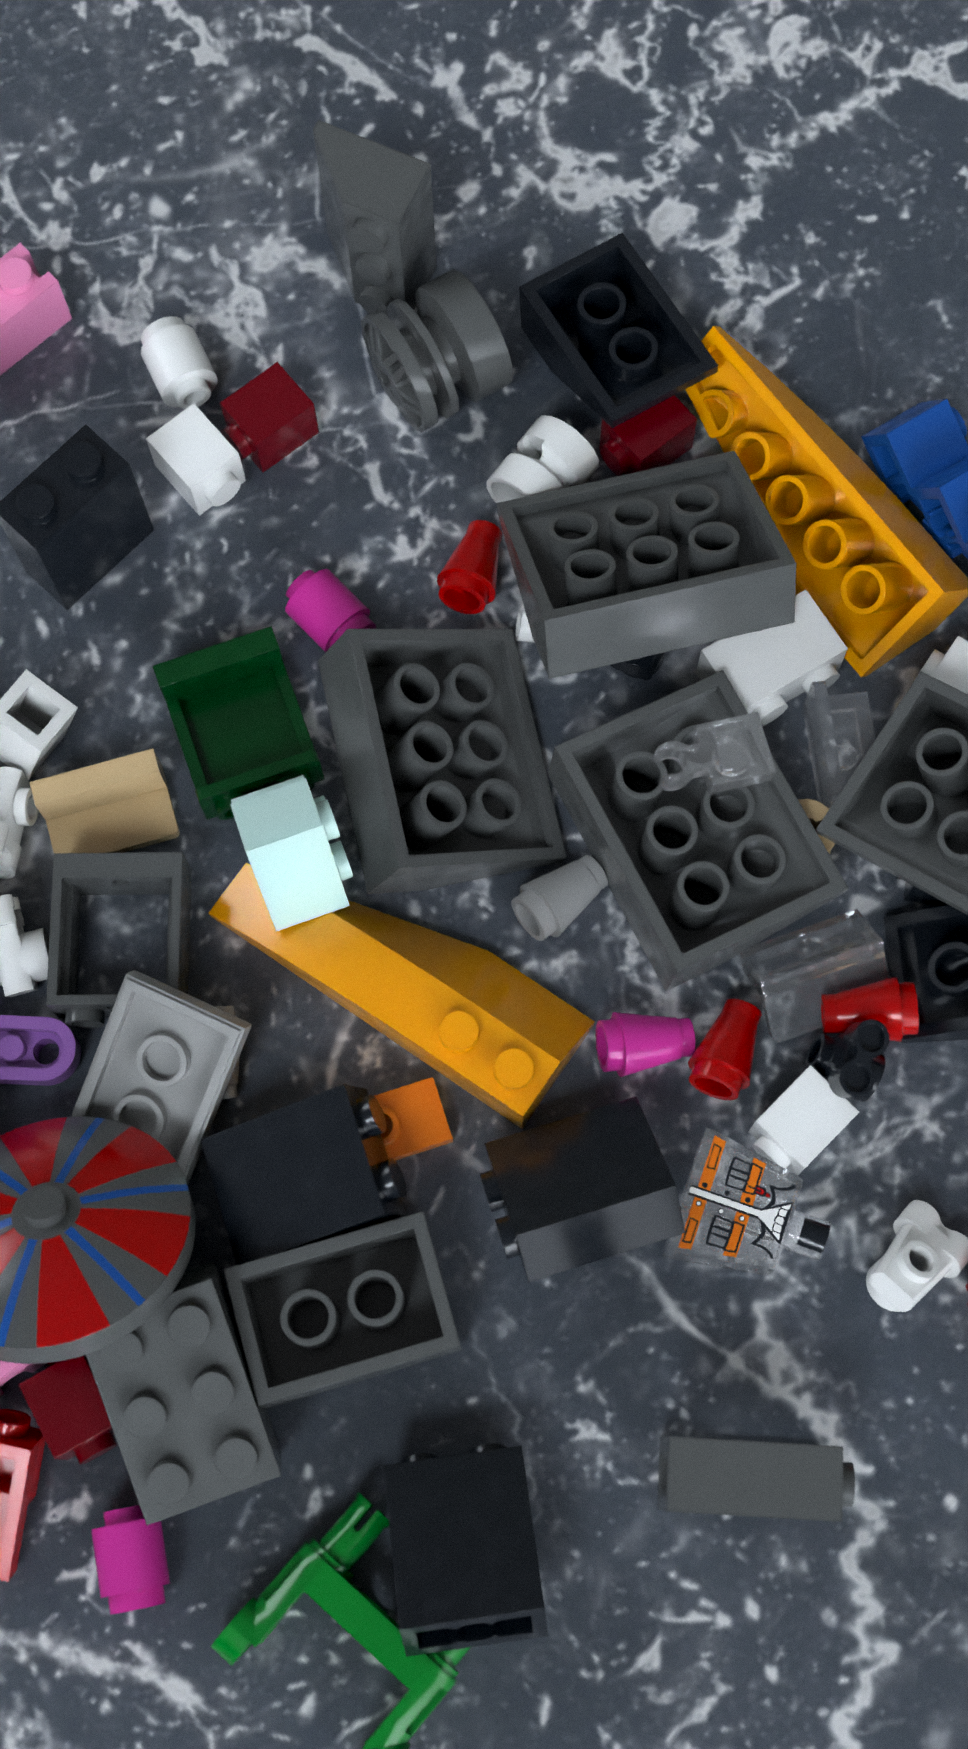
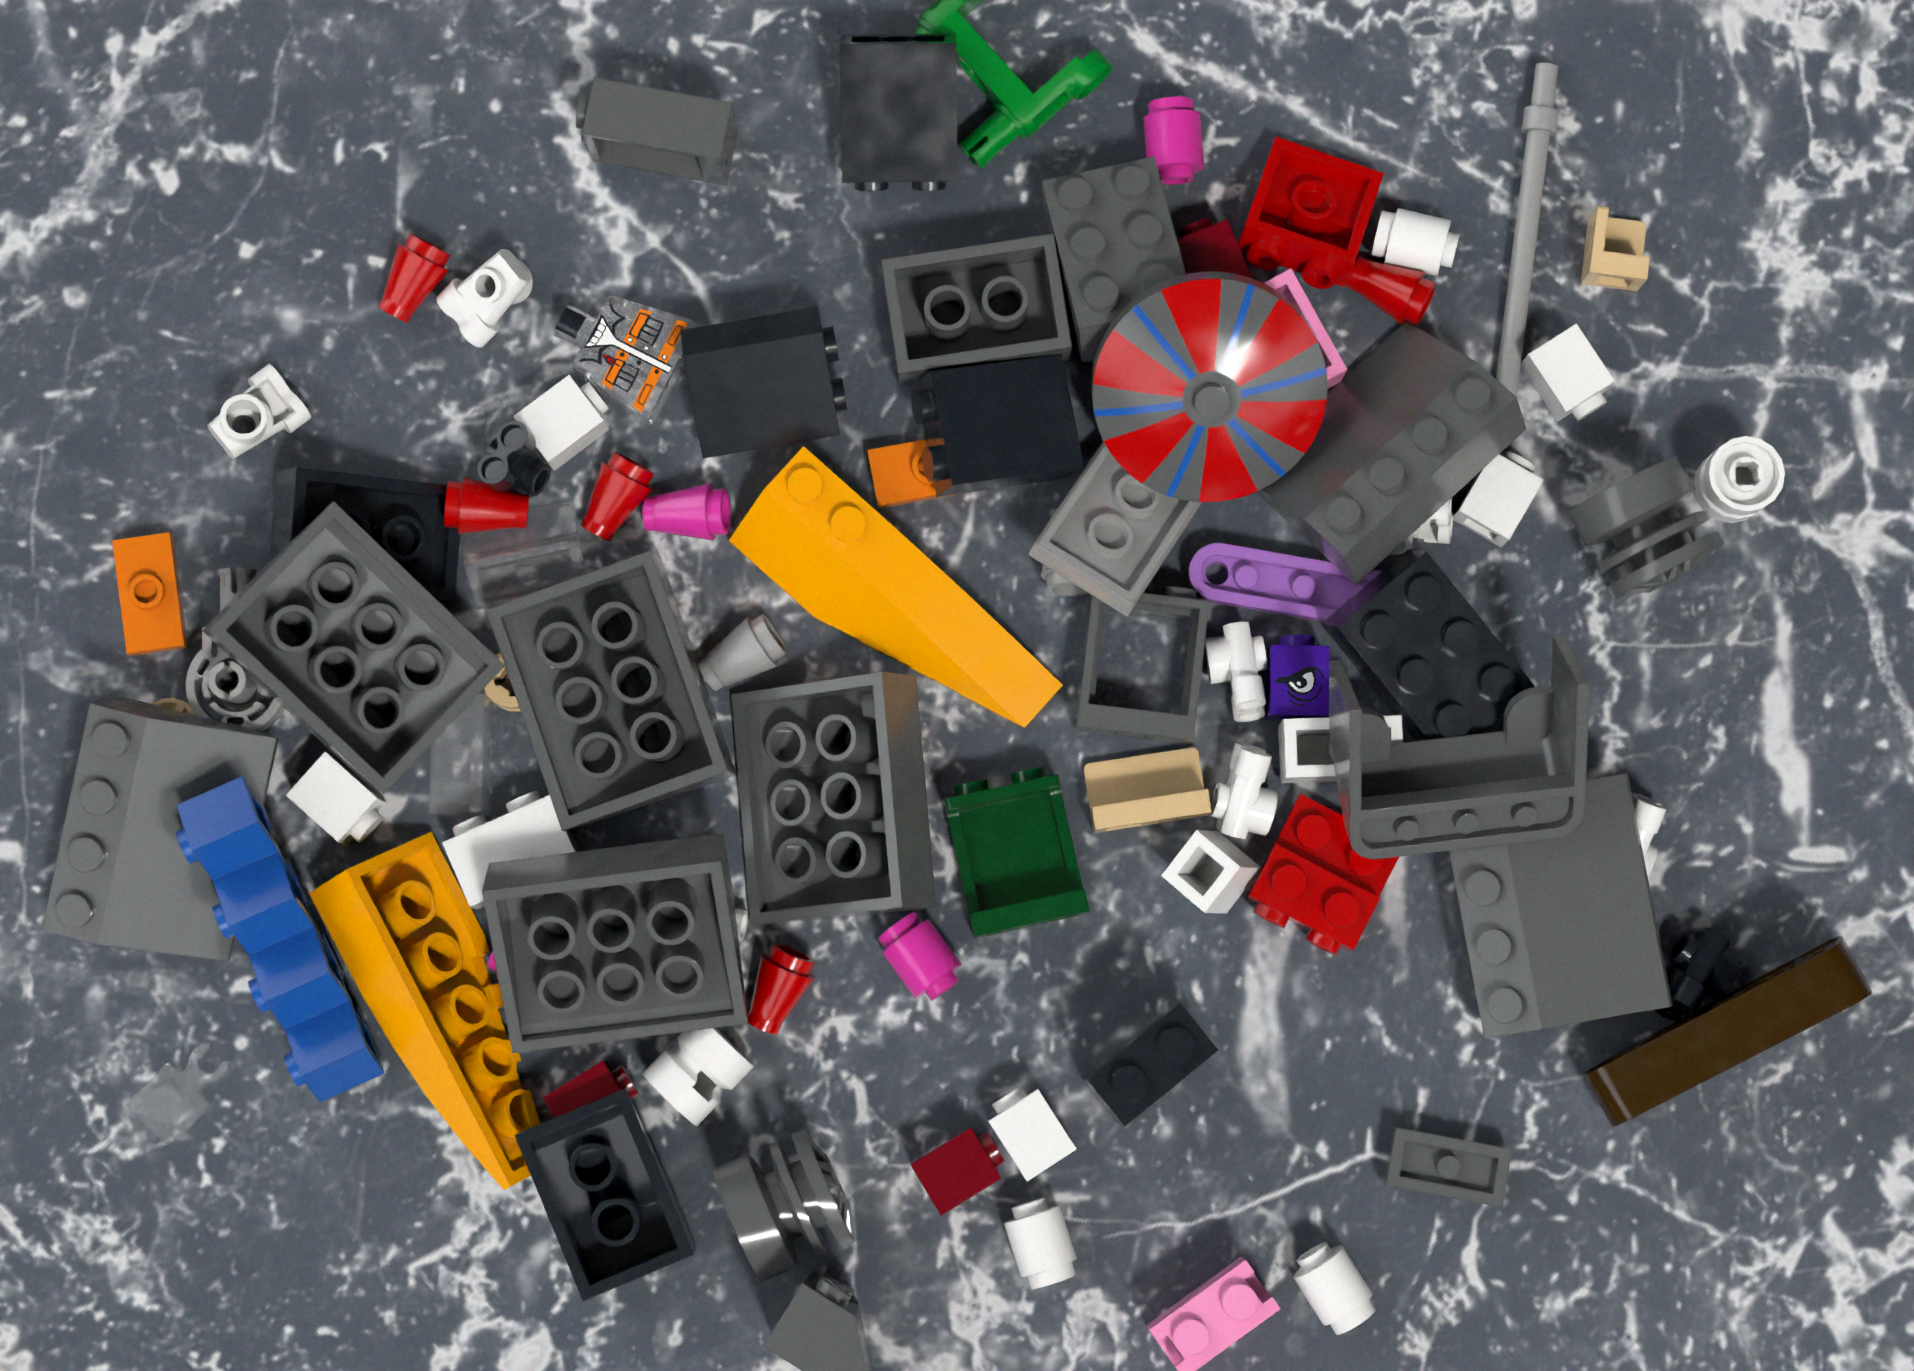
camera: 175 degrees left, 10 degrees up
(291, 852) = (981, 713): light aqua brick -> none
(724, 751) = (574, 737): clear plate -> none

